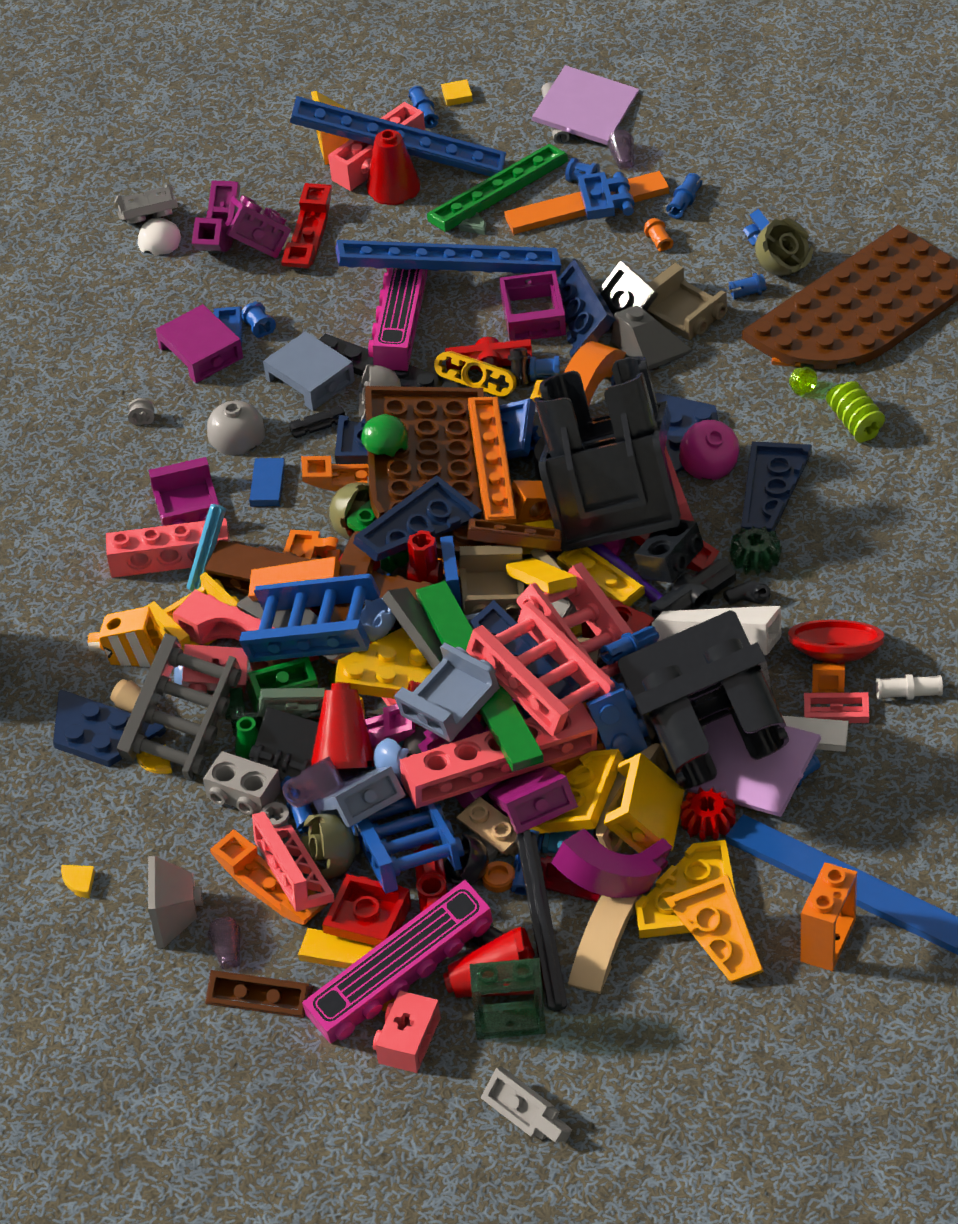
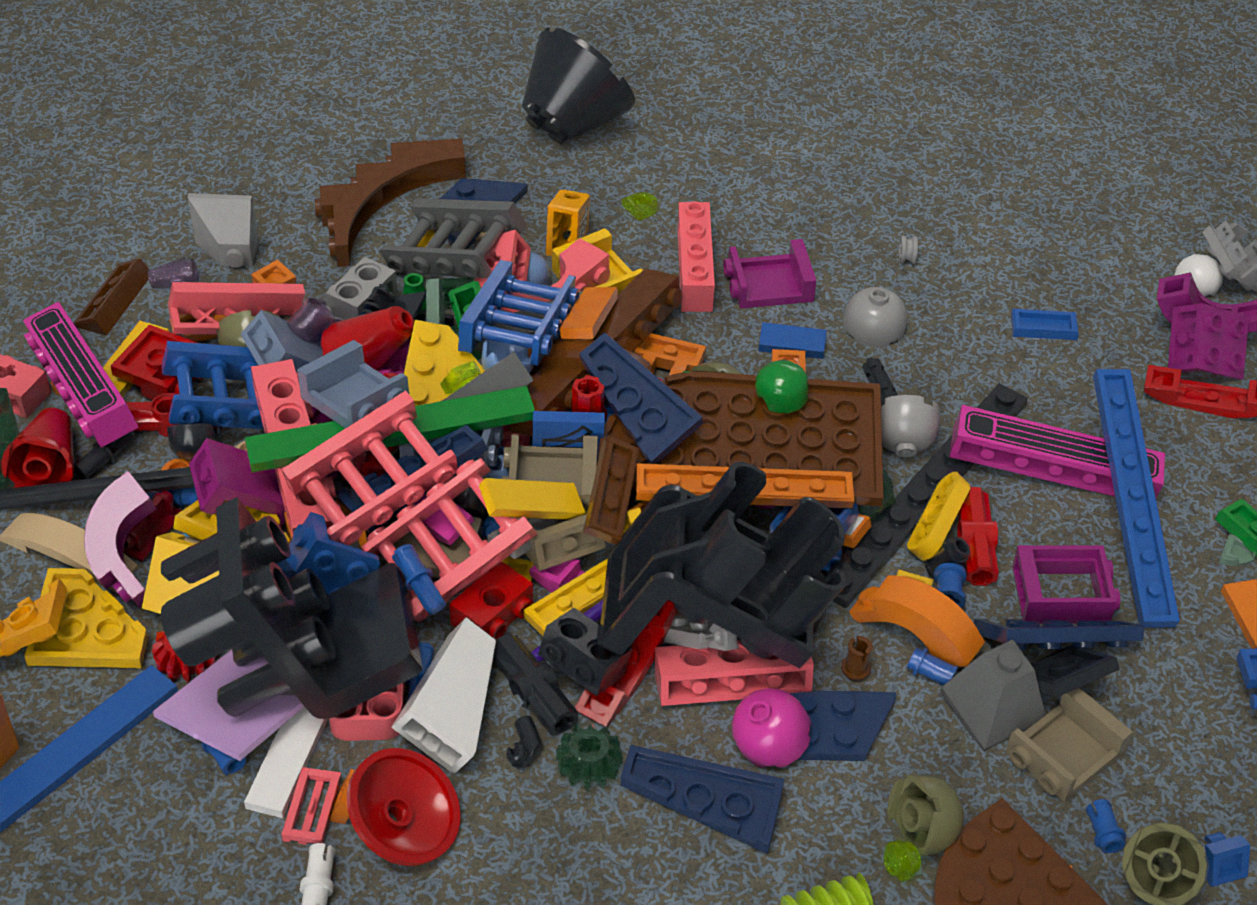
camera: 90 degrees right, 0 degrees up
(78, 806) = (409, 167): none -> reddish brown arch
(78, 879) = (292, 191): yellow tile -> none
(83, 604) = (640, 205): none -> clear neon green tile
(200, 342) = (1010, 292): magenta panel -> none
(206, 544) = (682, 262): dark azure axle -> none
(260, 322) = (1052, 343): blue bush -> none
(310, 369) = (958, 374): sand blue panel -> none
(405, 639) = (460, 376): none -> clear neon green tile
(656, 231) = (1216, 738): orange pin -> none
(770, 358) = (929, 808): none -> olive cylinder

